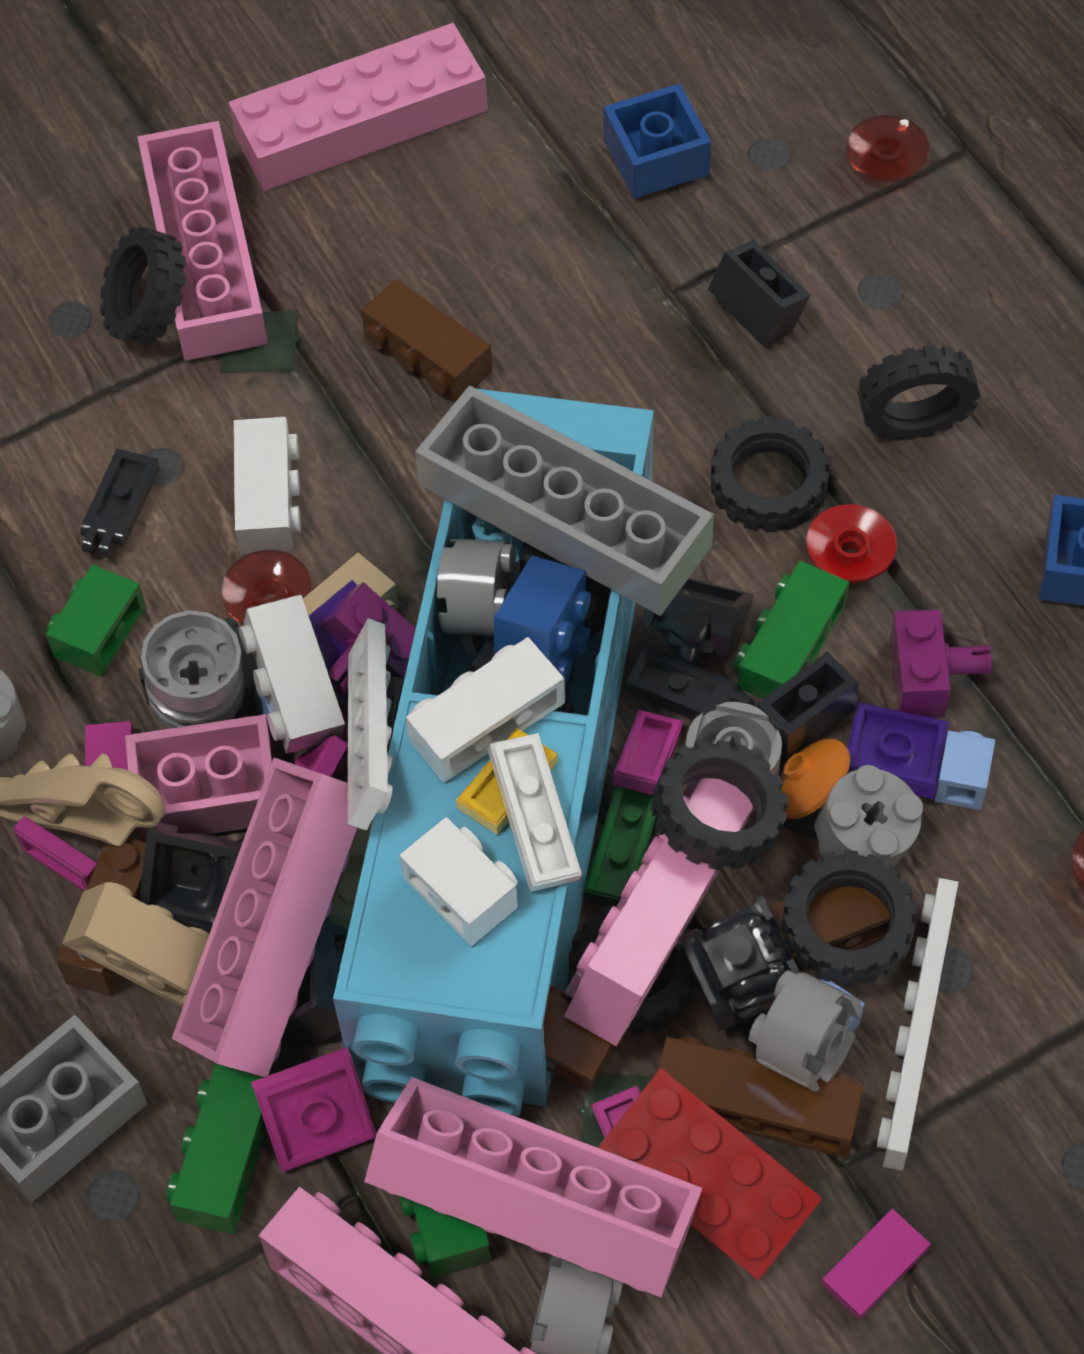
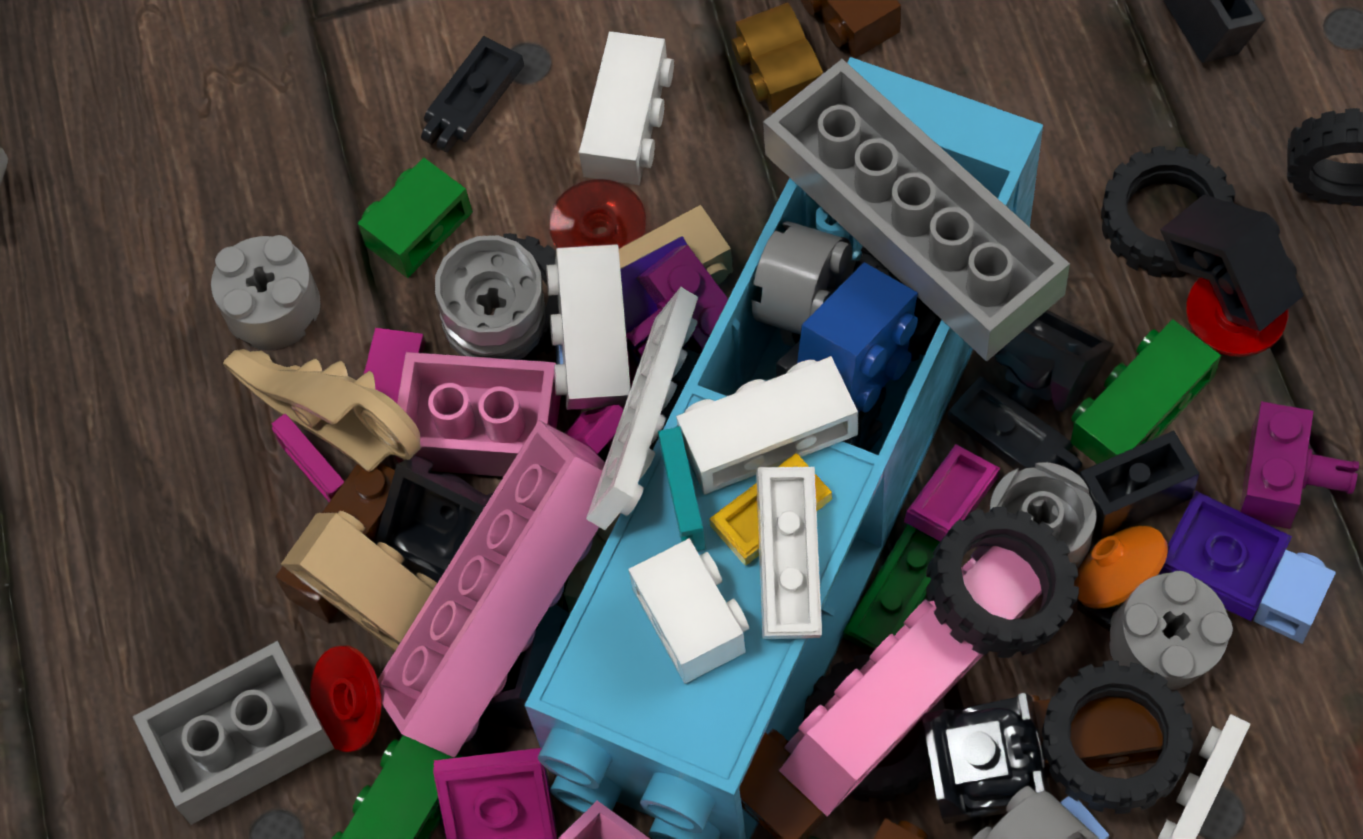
camera: 20 degrees right, 5 degrees up
(151, 1050) = (346, 697): none -> red dish
(390, 413) = (776, 55): none -> pearl gold brick
(424, 776) = (681, 487): none -> teal tile
(844, 493) = (1239, 256): none -> black brick

